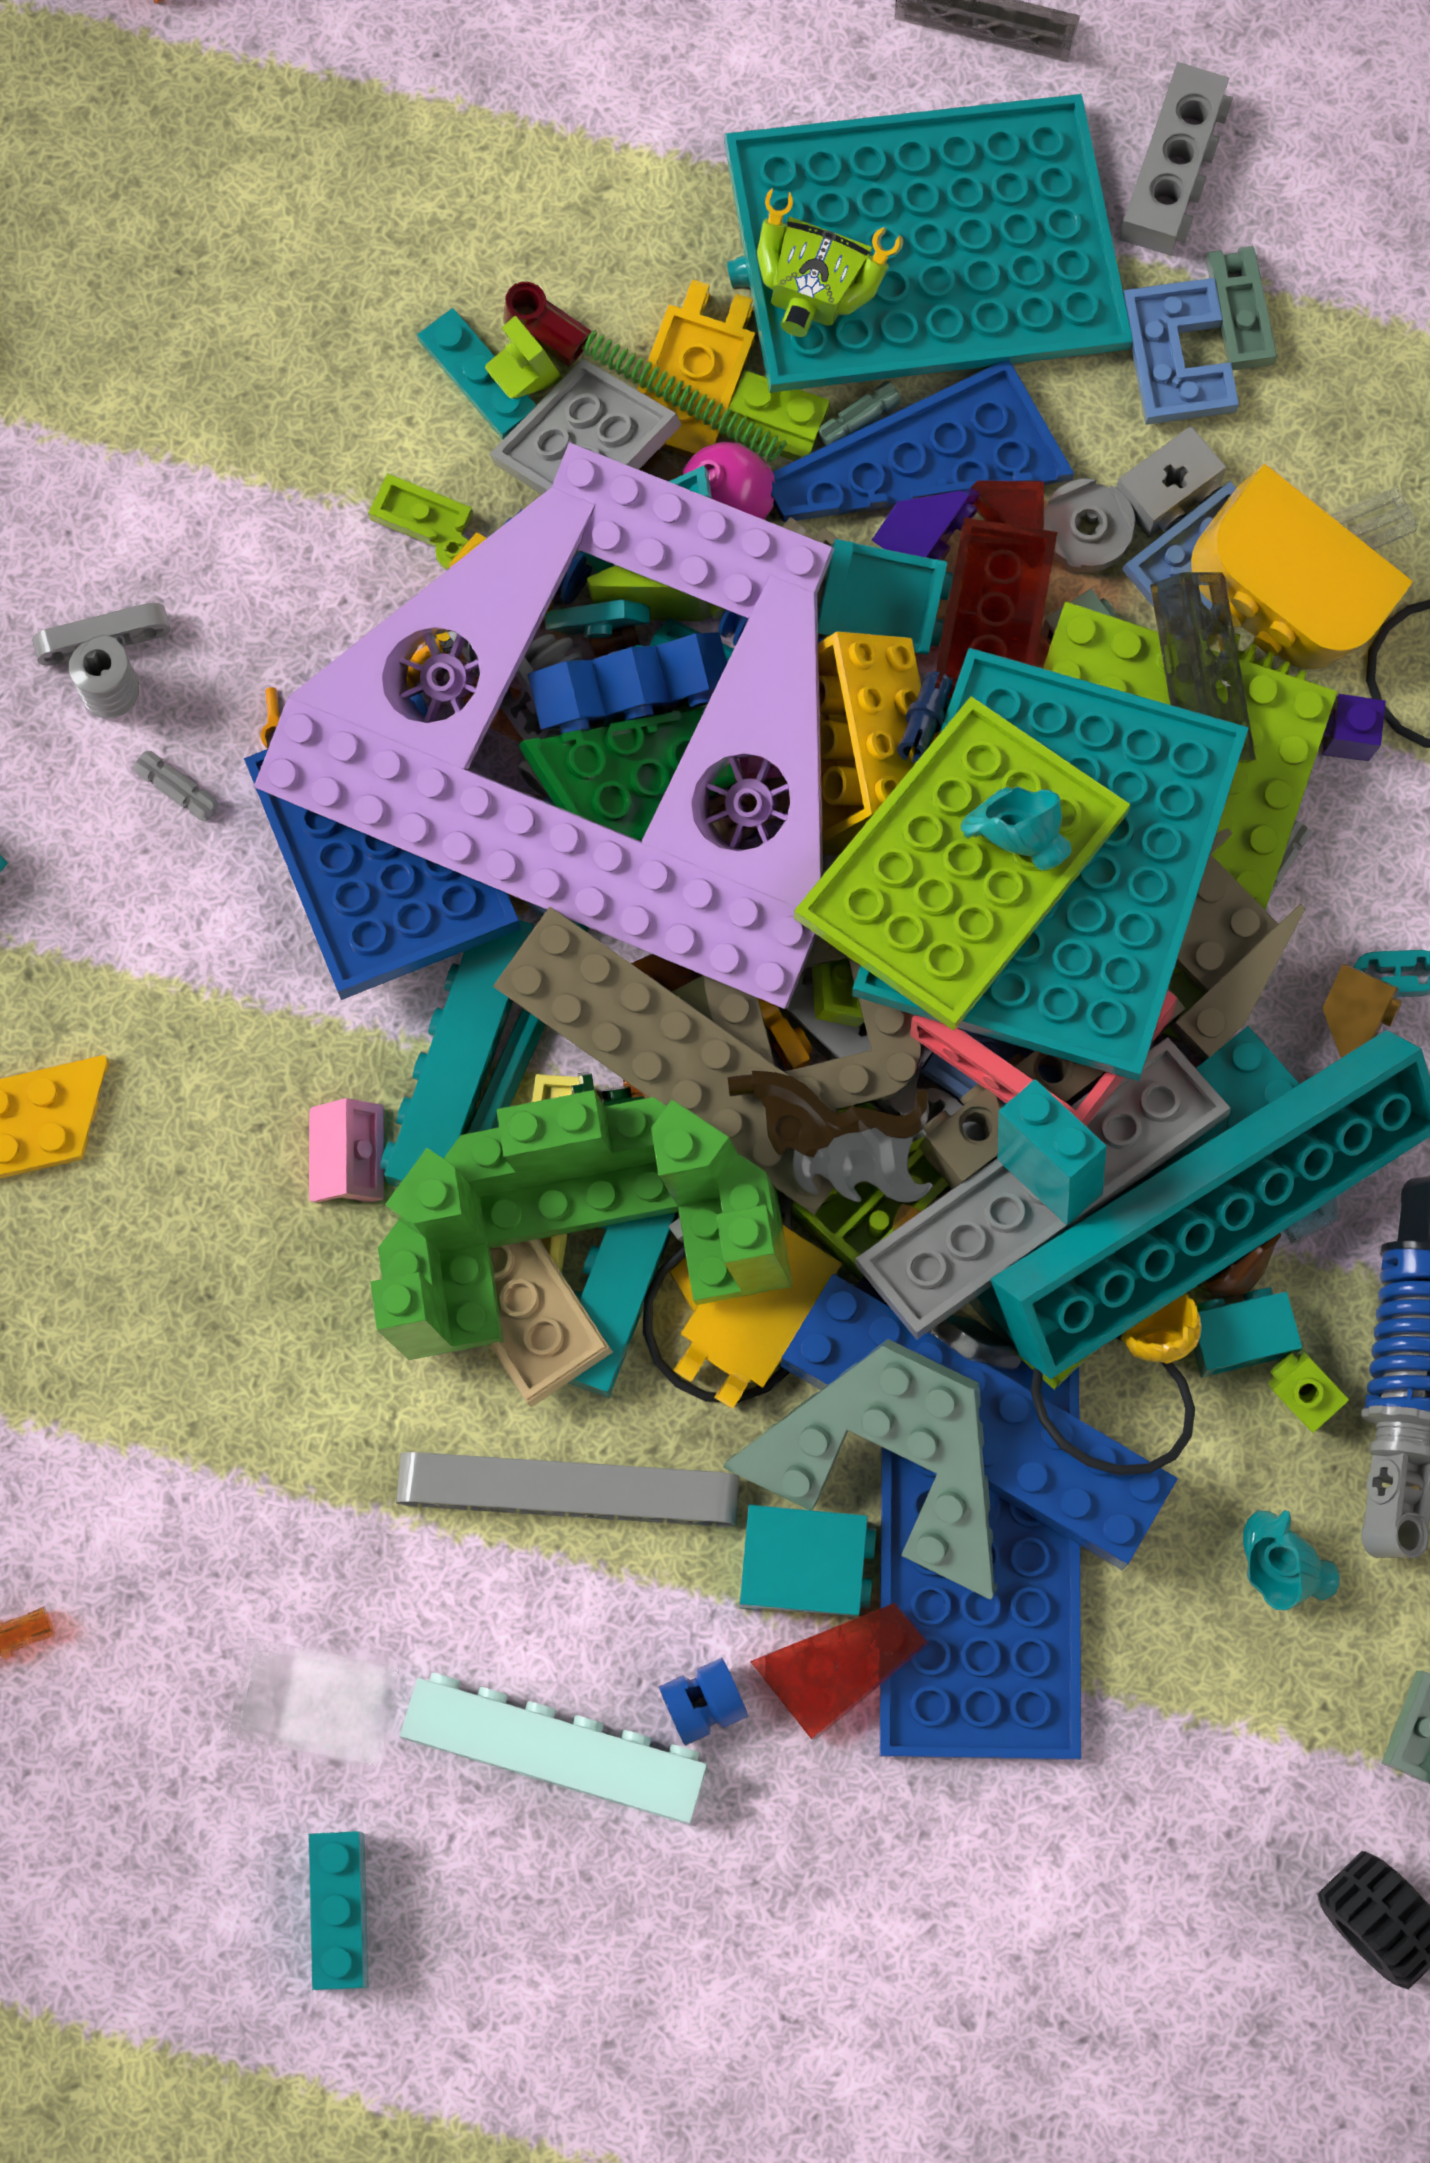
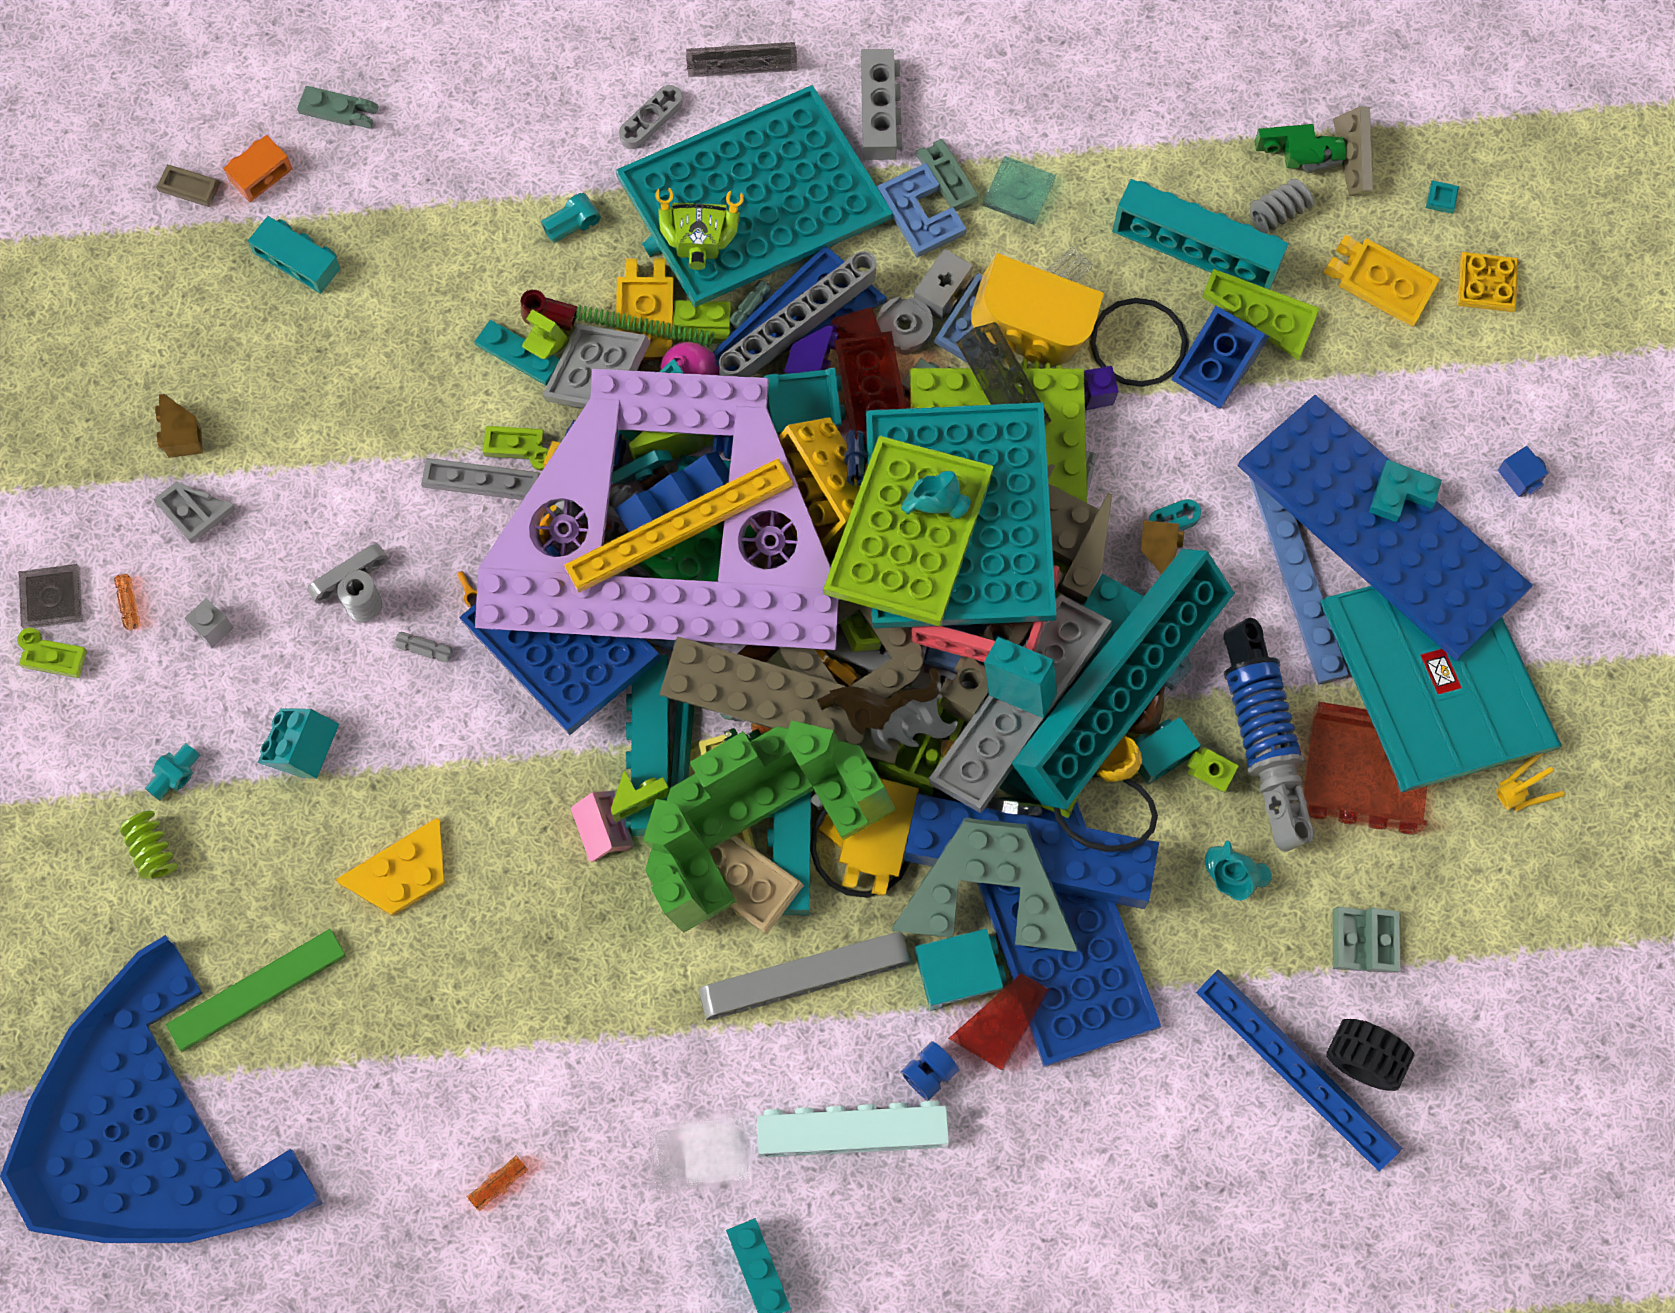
camera: 20 degrees left, 5 degrees down
(193, 107) = (294, 254): none -> teal brick
(346, 551) = (477, 479): none -> light grey tile
(394, 1132) = (629, 801): none -> lime slope
(613, 733) = (678, 525): none -> yellow tile
(642, 185) = (576, 215): none -> teal piece
(818, 47) = (631, 124): none -> light grey beam
(938, 448) = (804, 307): none -> light grey beam
(1268, 1903) = (1299, 1070): none -> blue plate
(1346, 368) = (1019, 190): none -> clear light blue tile

